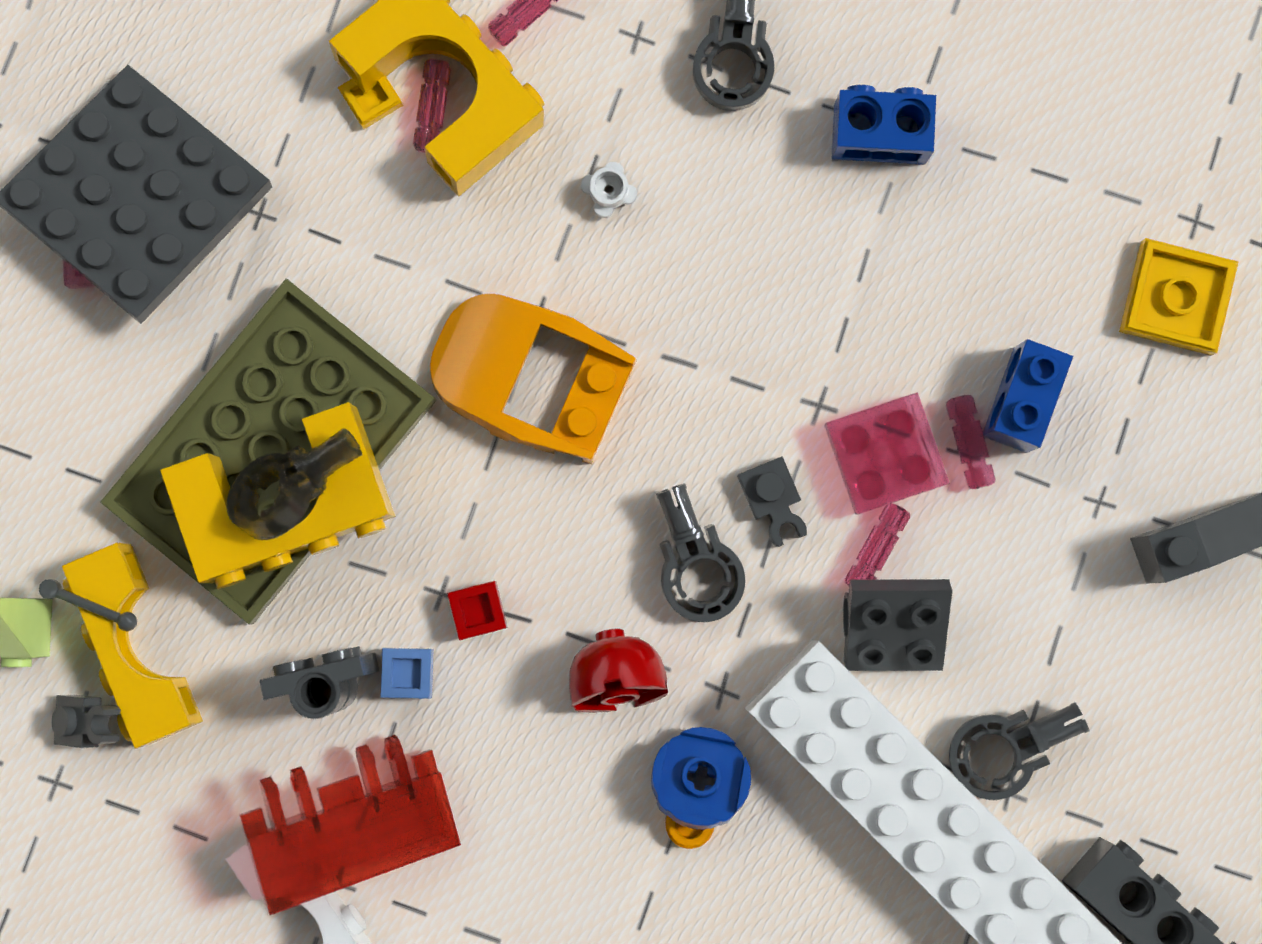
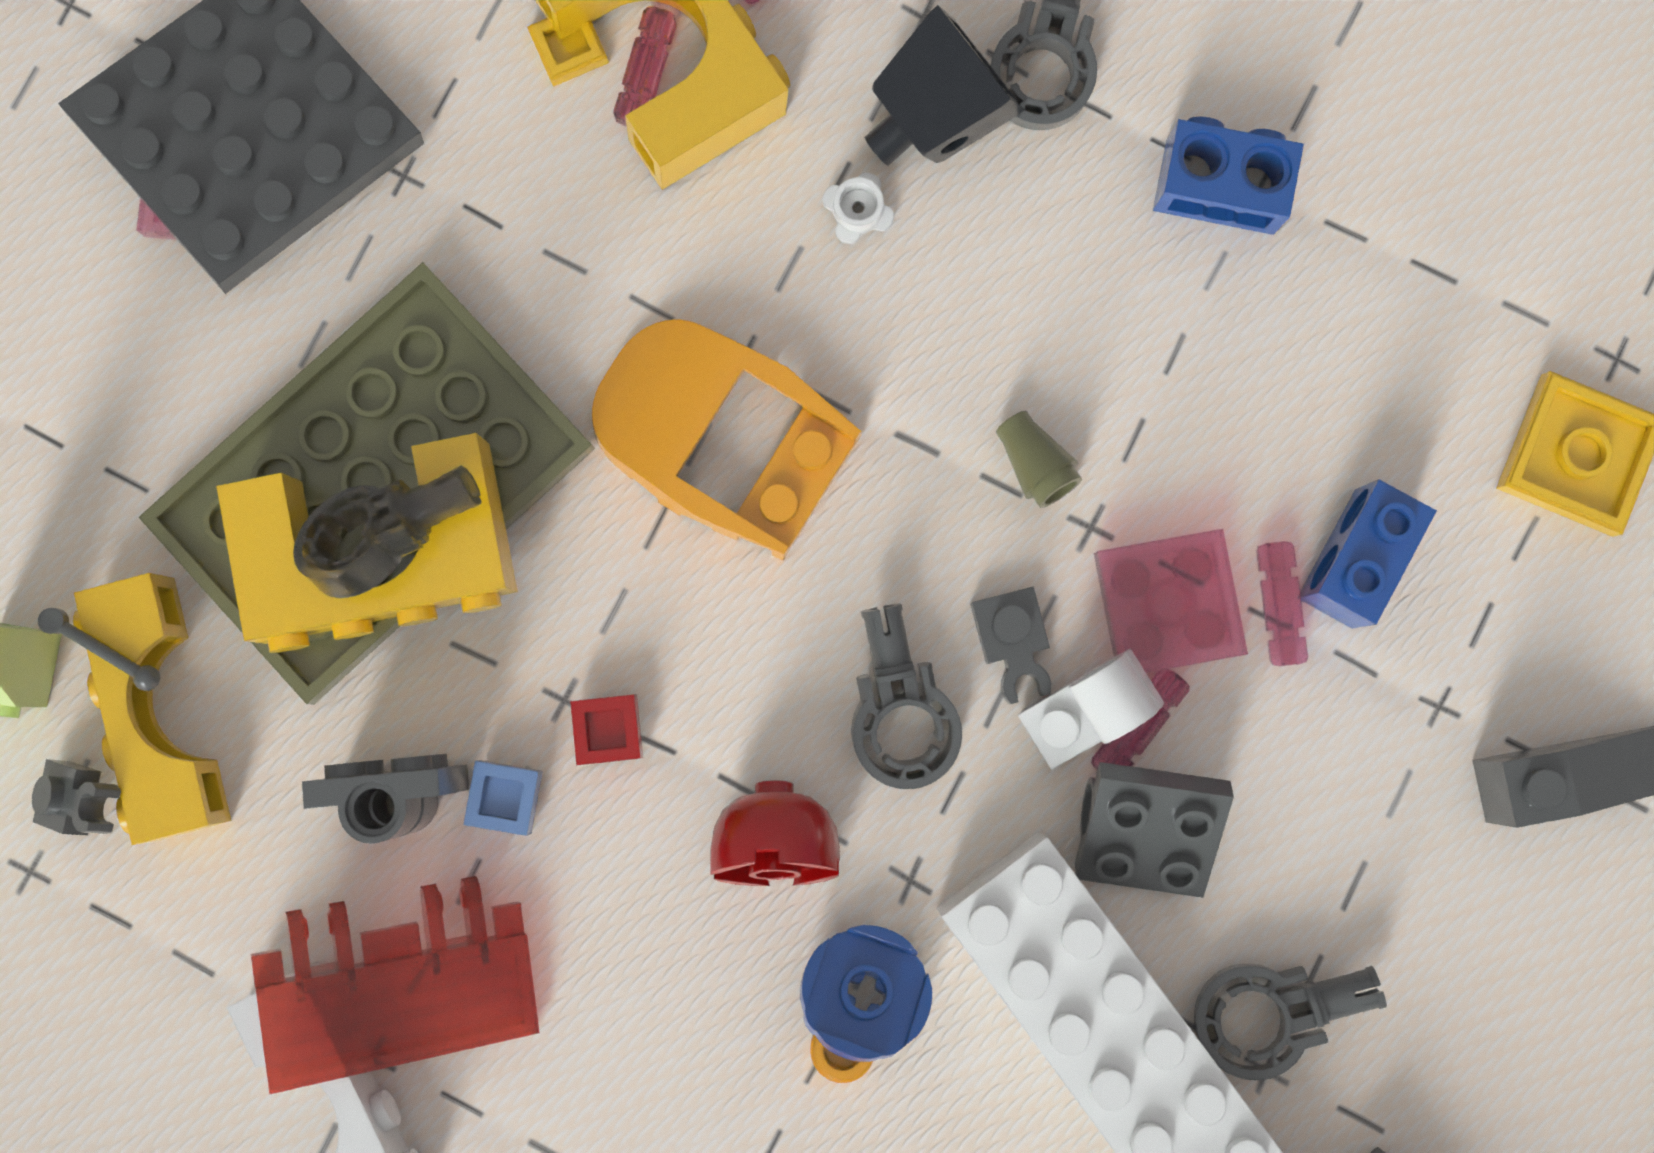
camera: 10 degrees right, 0 degrees up
(657, 96) = (938, 94): none -> black torso
(773, 362) = (1038, 460): none -> olive cone
(839, 541) = (1092, 709): none -> white plate

